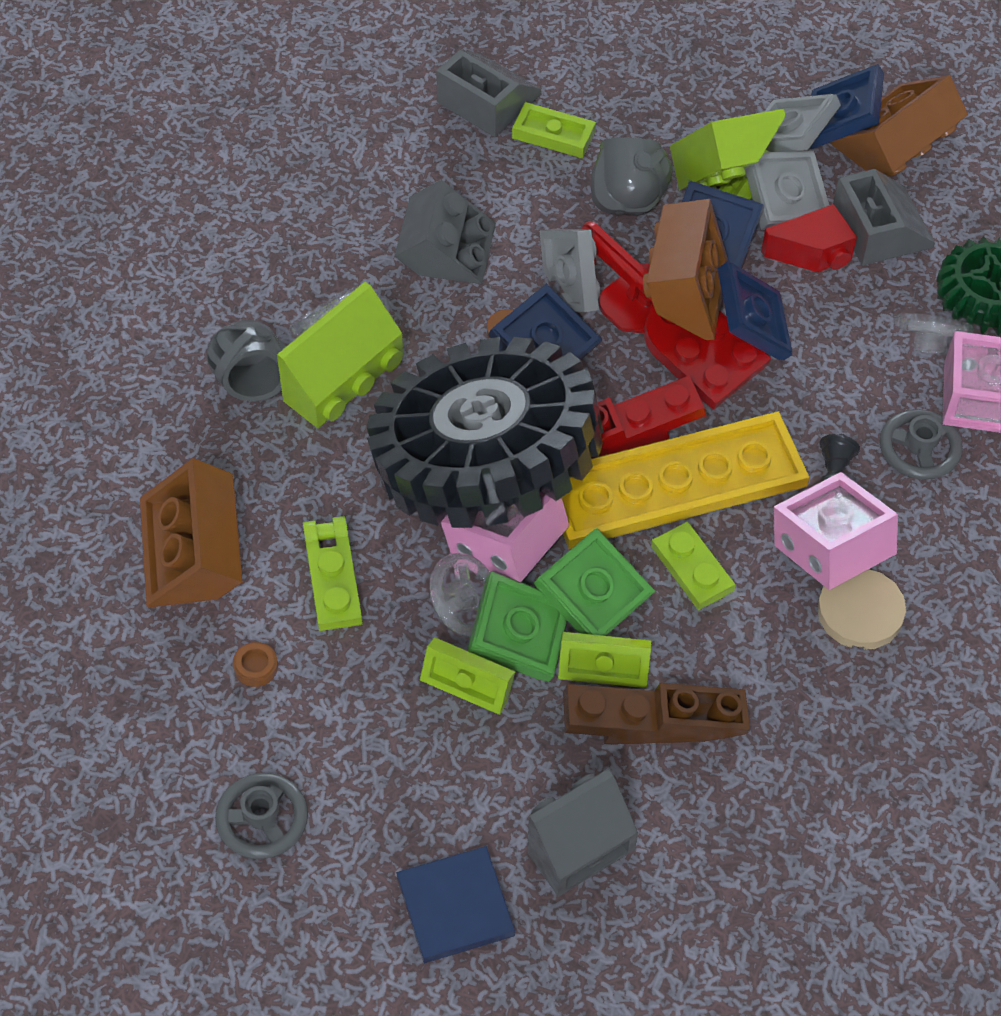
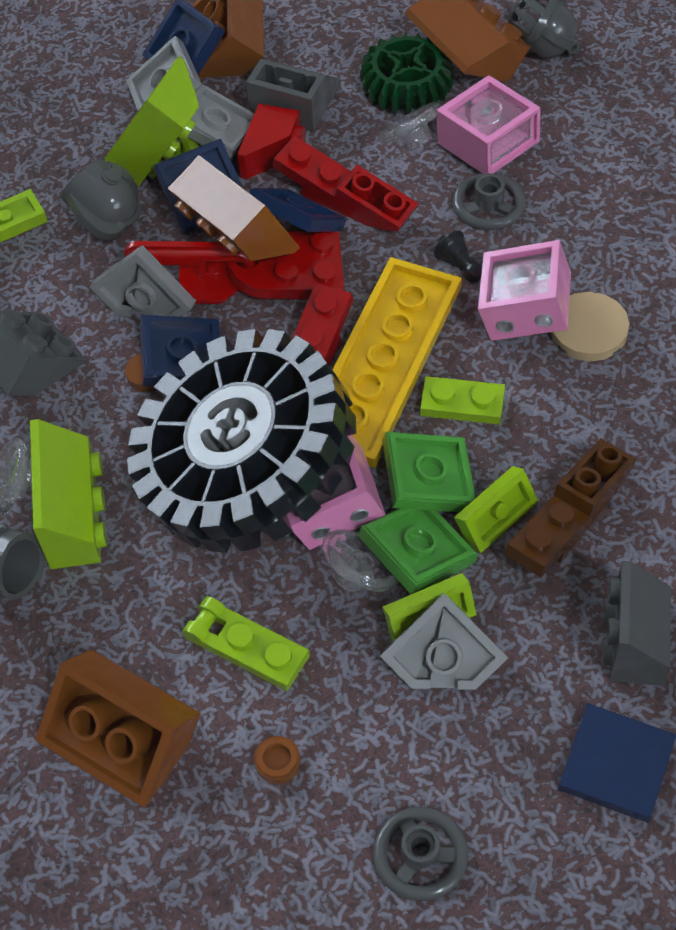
camera: 45 degrees left, 0 degrees up
(443, 709) = (444, 650): none -> light grey plate
(816, 327) = (348, 192): none -> red slope

